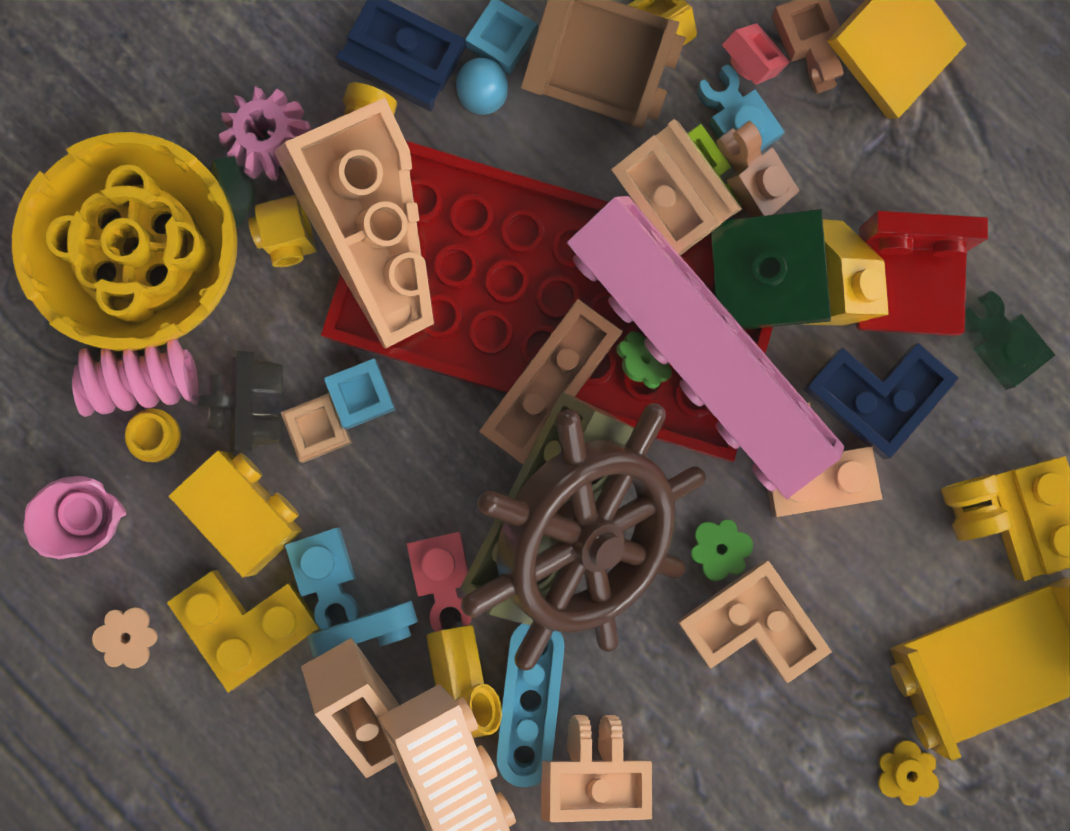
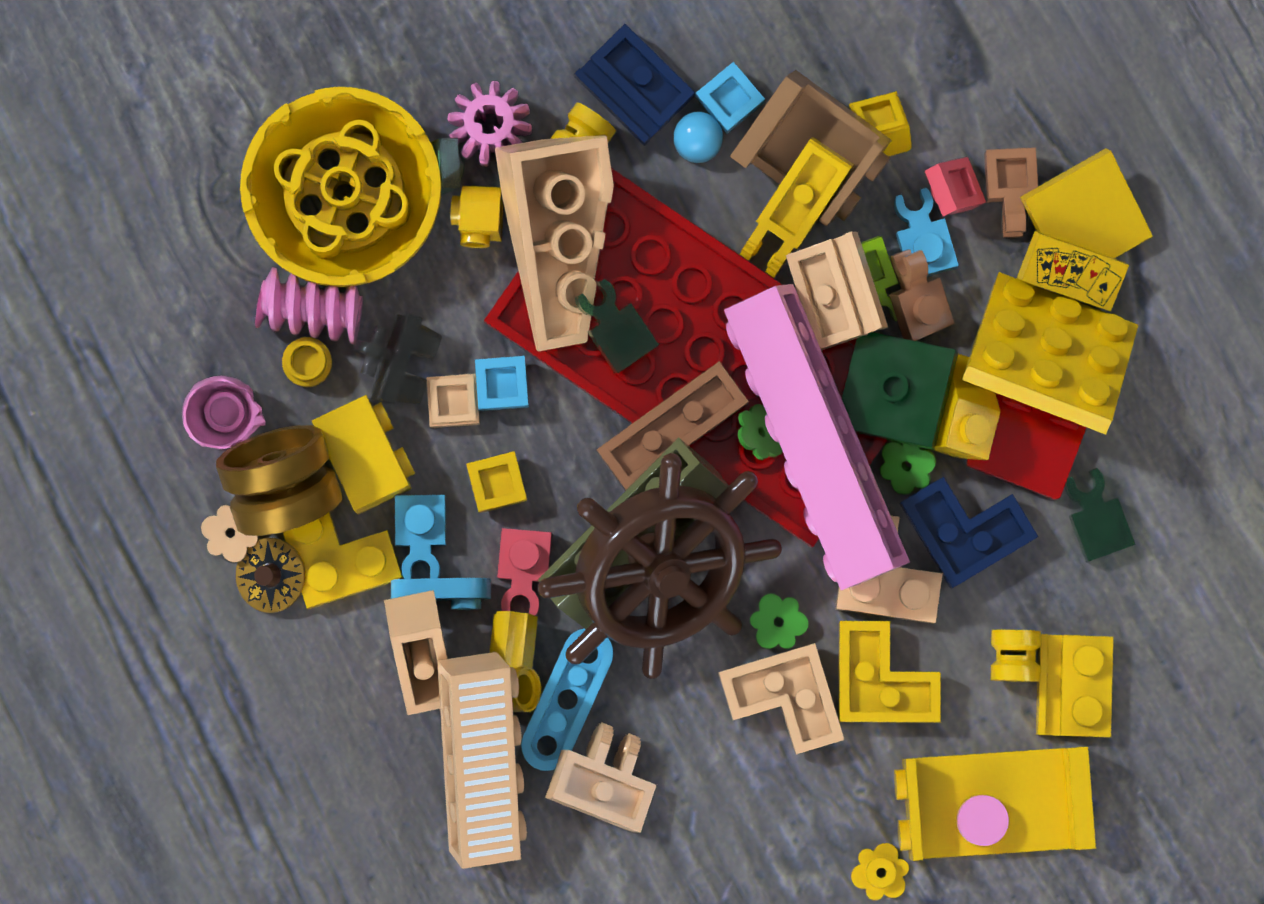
camera: 25 degrees right, 0 degrees up
(149, 573) = (279, 480): none -> pearl gold wheel
(181, 669) = (270, 575): none -> piece
(386, 497) = (496, 482): none -> yellow plate
(465, 303) = (620, 333): none -> clear green plate
(606, 112) = (798, 202): none -> yellow hinge
(800, 362) = (902, 477): none -> bright green plant
(846, 591) = (868, 687): none -> yellow plate
(903, 98) = (1072, 271): none -> yellow tile
(918, 185) = (1051, 353): none -> yellow plate
(999, 689) = (982, 820): none -> bright pink tile

